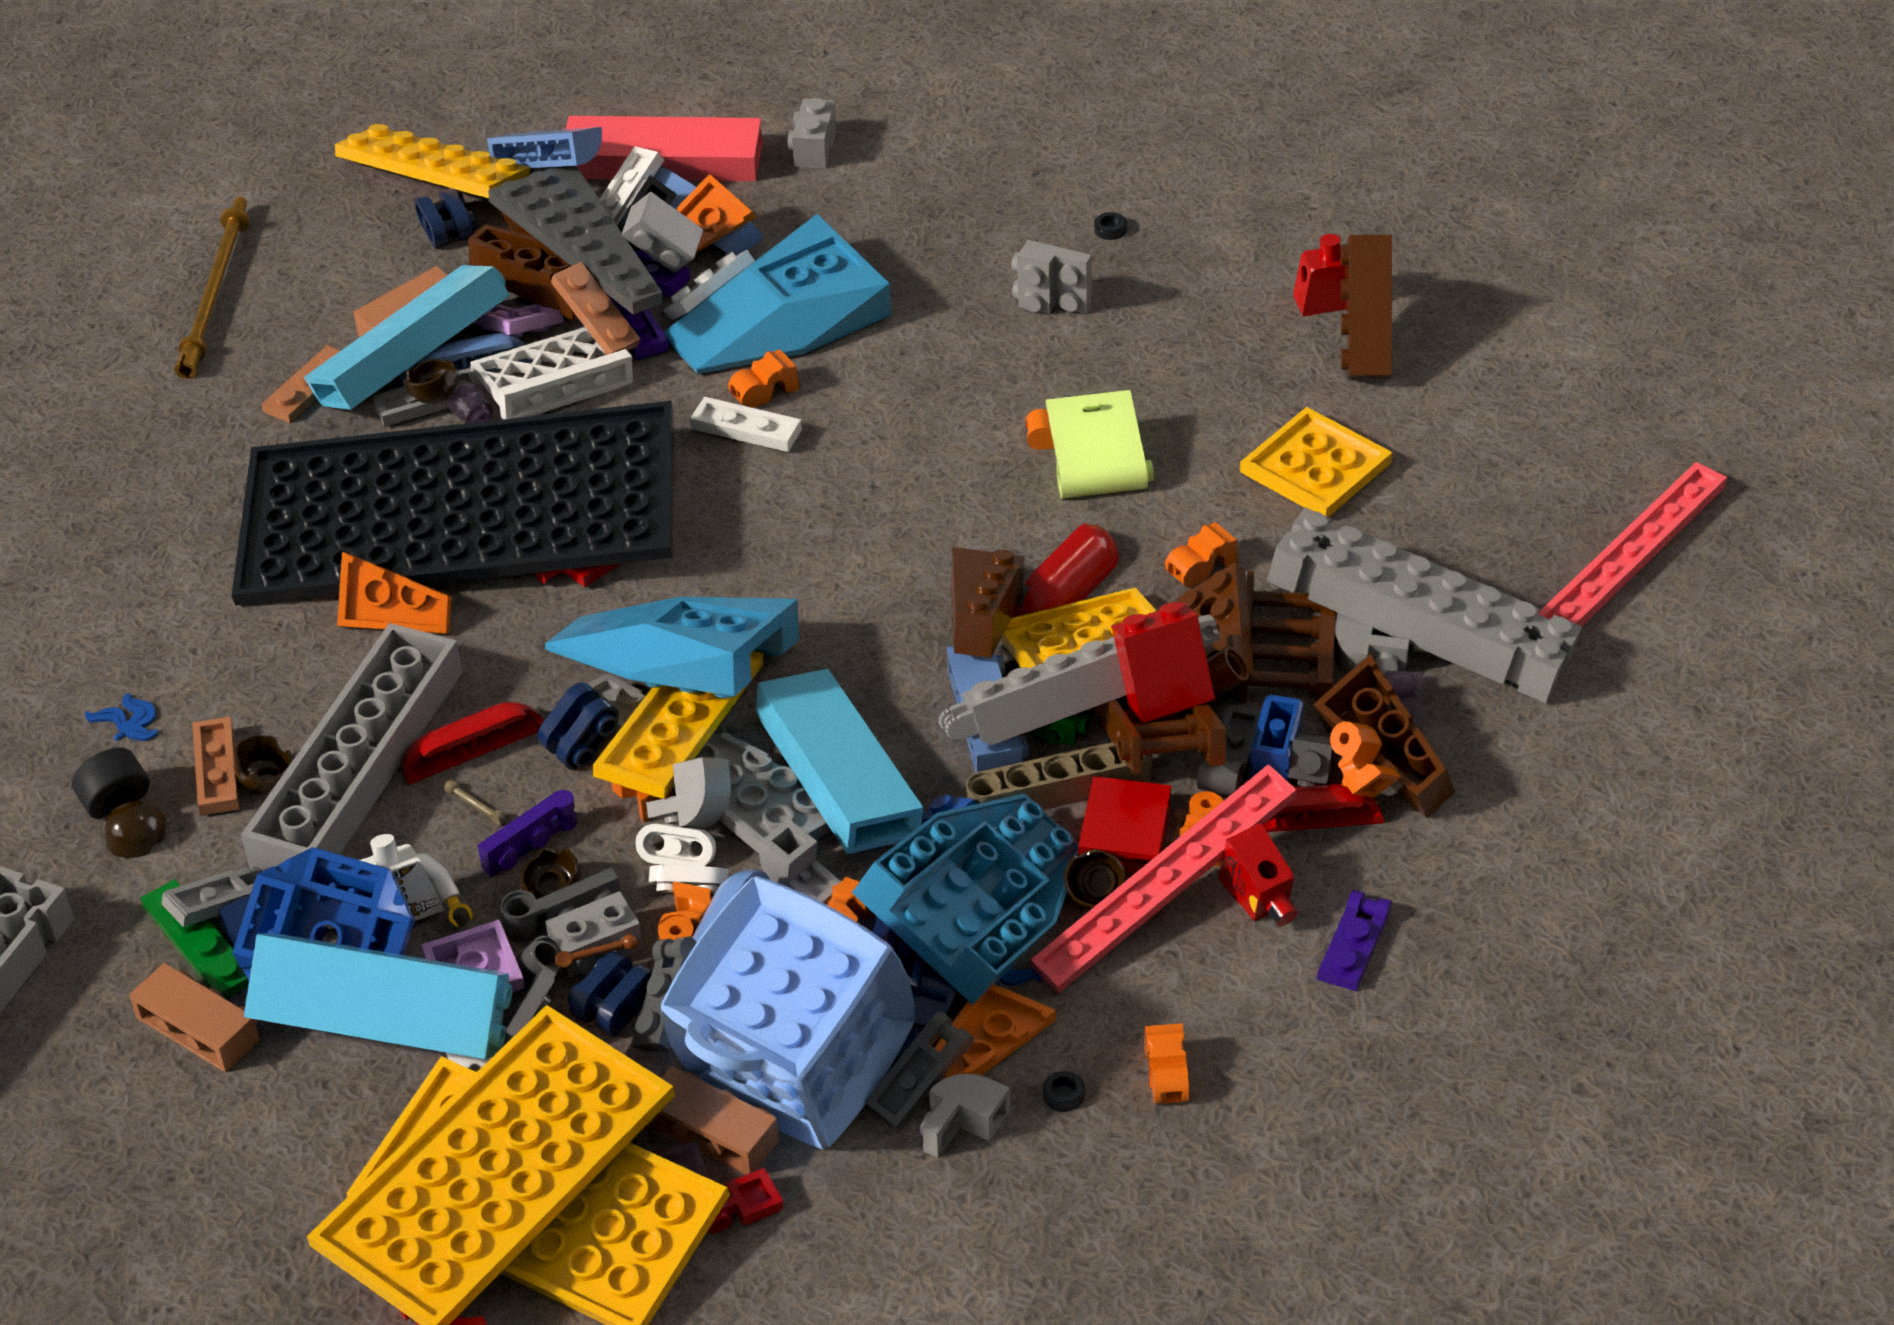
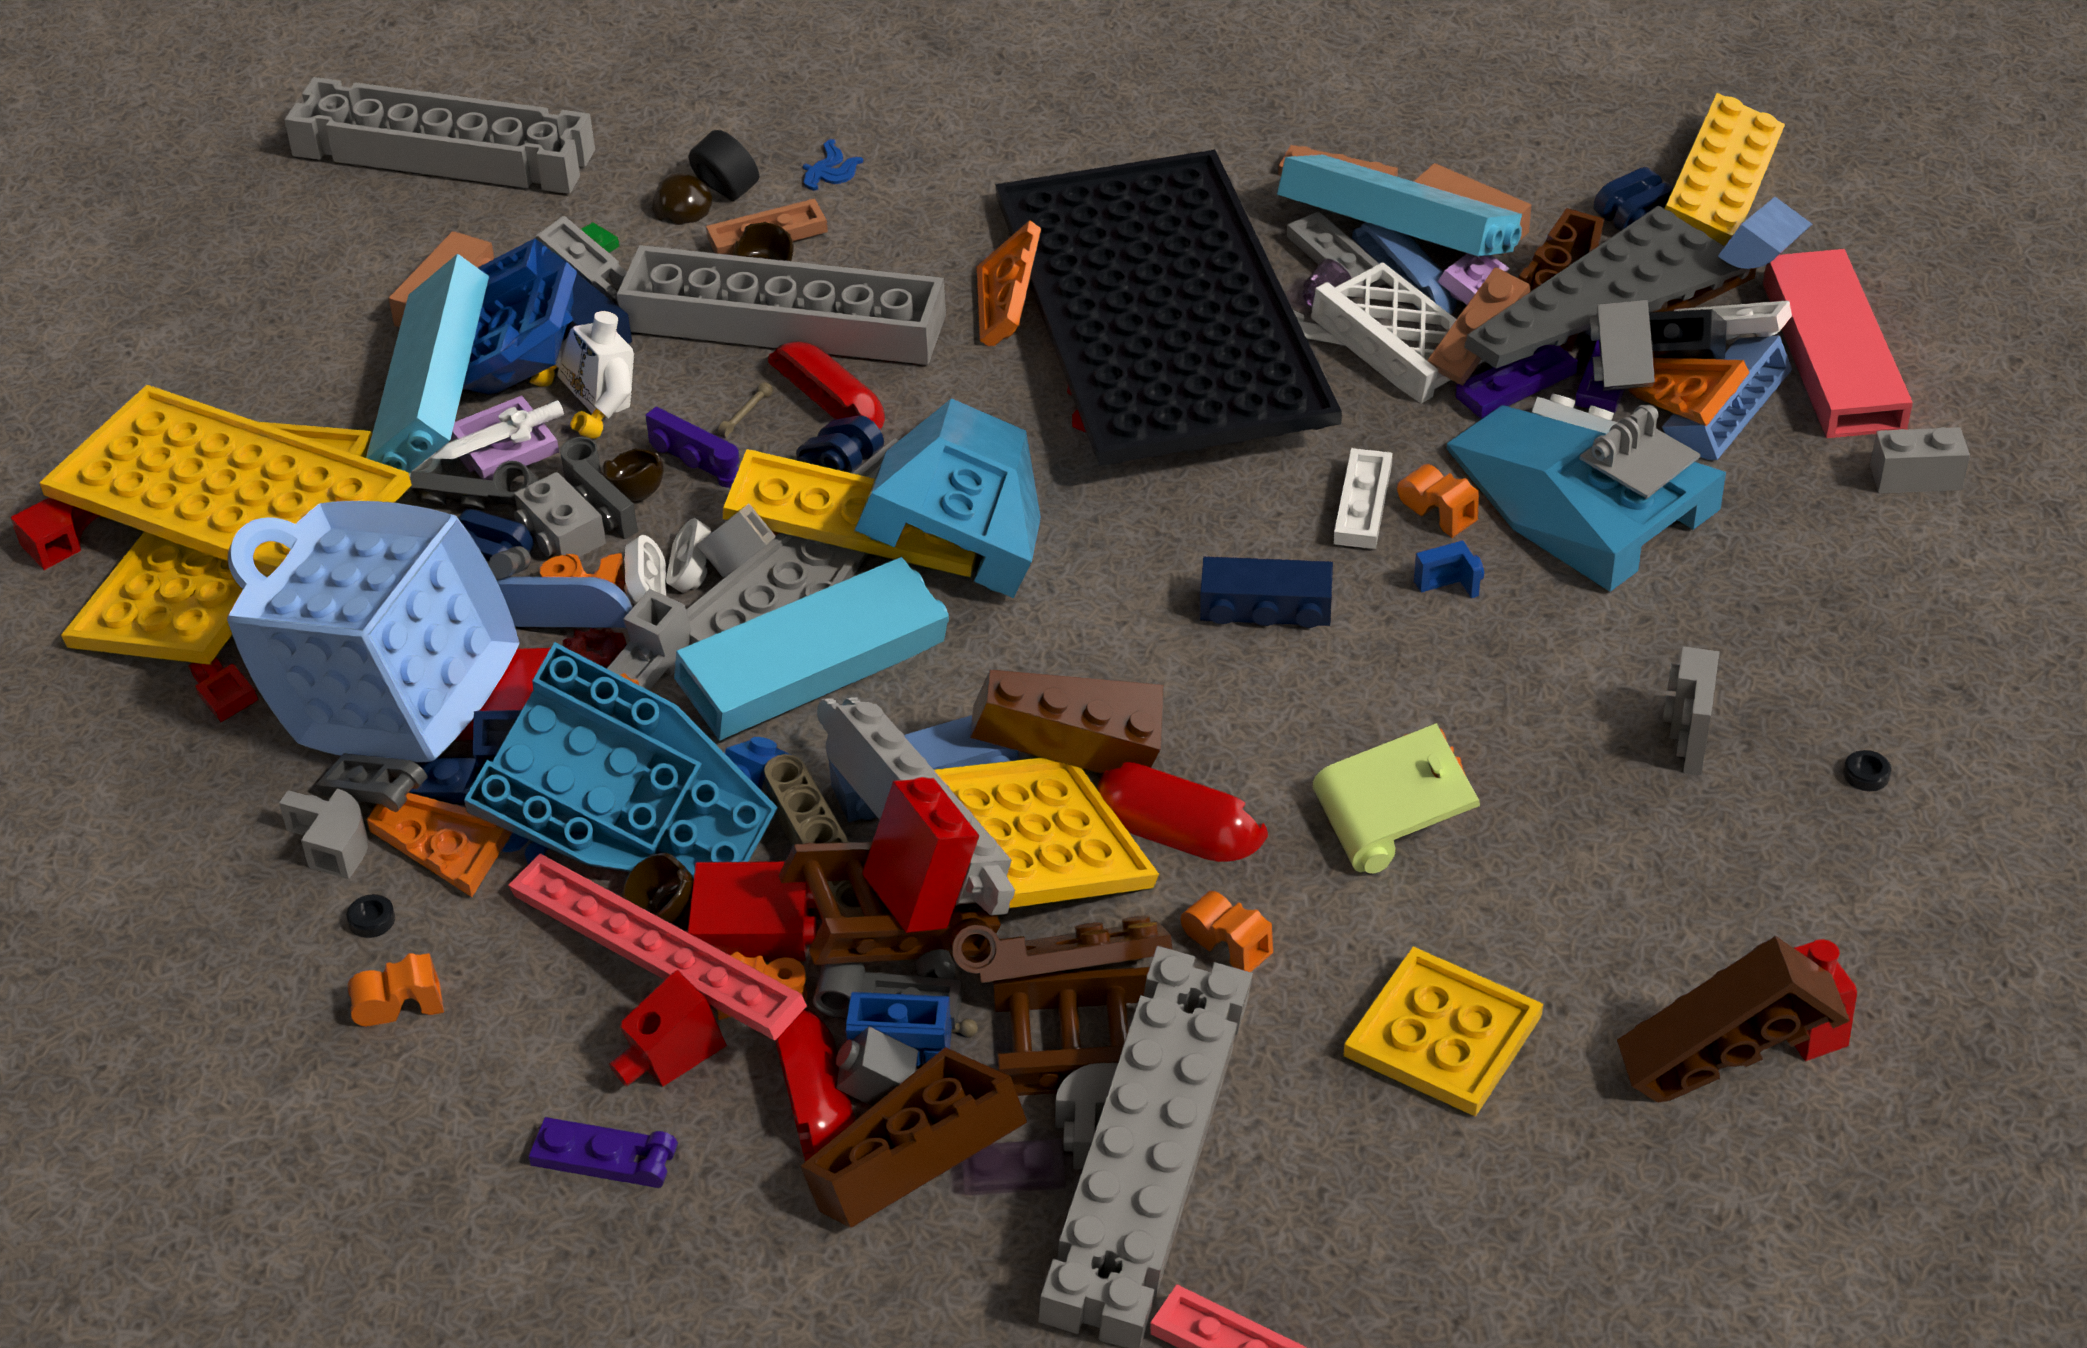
camera: 80 degrees right, 0 degrees up
(193, 347) = (1364, 81): pearl gold bar -> none
(432, 381) = (1332, 238): dark brown hair -> none
(473, 939) = (510, 422): none -> white sword
(565, 958) = (507, 493): dark orange hinge -> none
(790, 246) = (1639, 453): none -> light grey hinge
(843, 489) = (1266, 591): none -> dark blue brick
(848, 380) = (1448, 566): none -> blue bracket
(1359, 747) = (848, 1096): orange leg -> none

